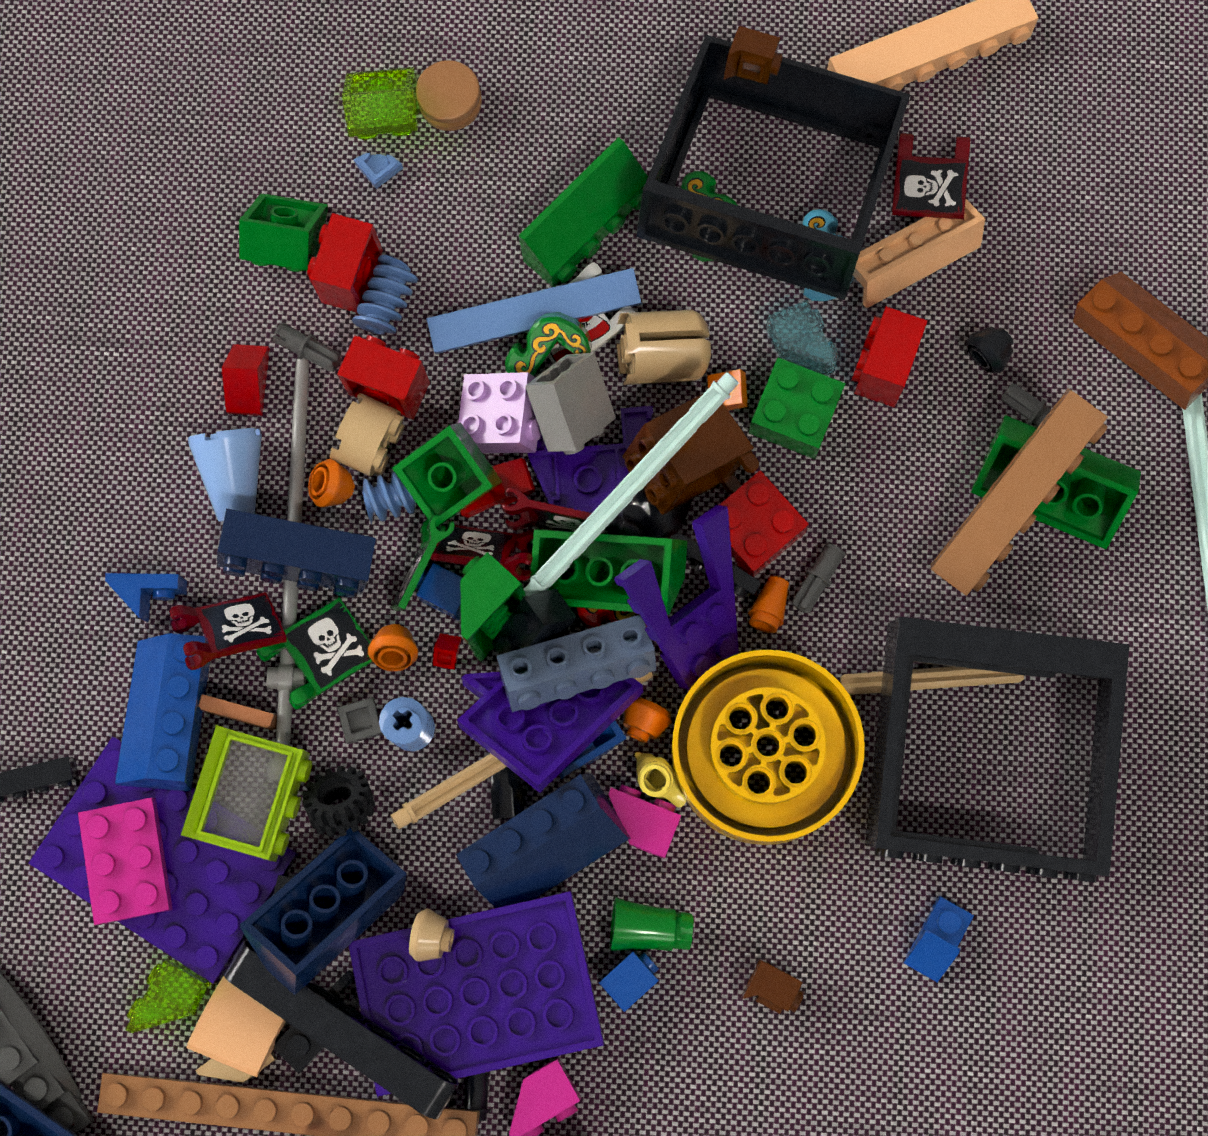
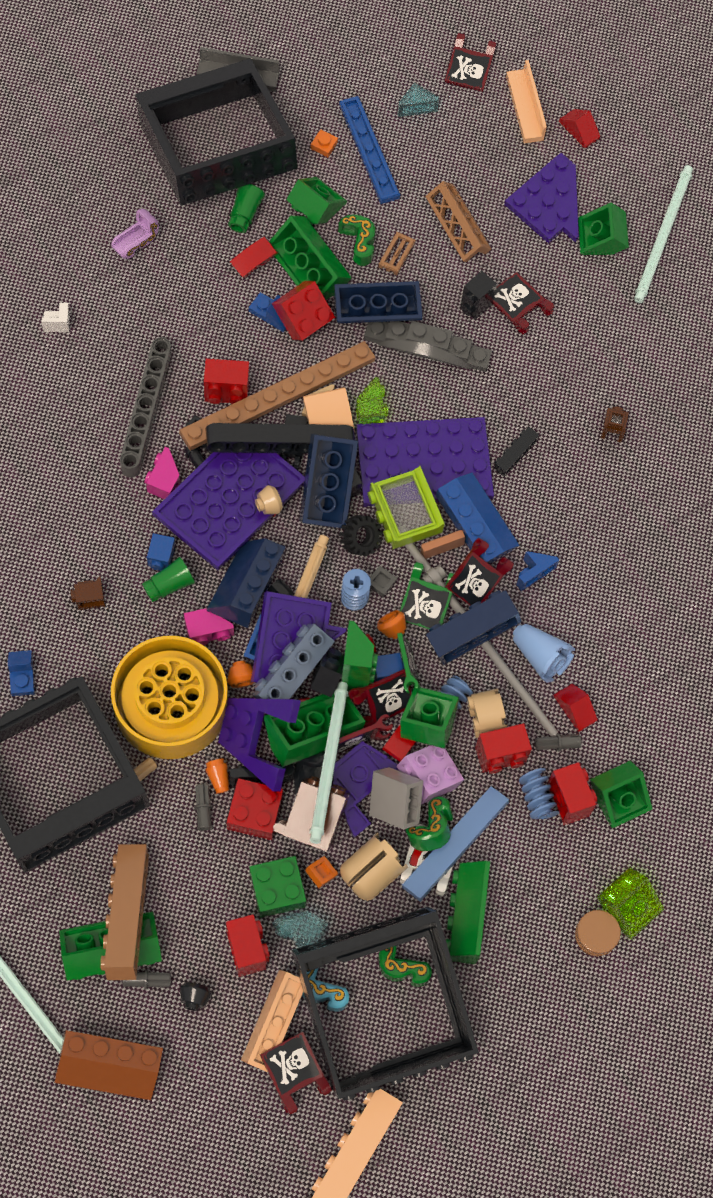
camera: 130 degrees right, 10 degrees down
(125, 861) = (439, 444): dark pink plate -> none
(330, 484) = (487, 679): orange cone -> none
(378, 167) = (603, 867): medium blue tile -> none
(658, 778) = (218, 647): light yellow animal -> none
(753, 56) = (440, 1049): reddish brown window -> none

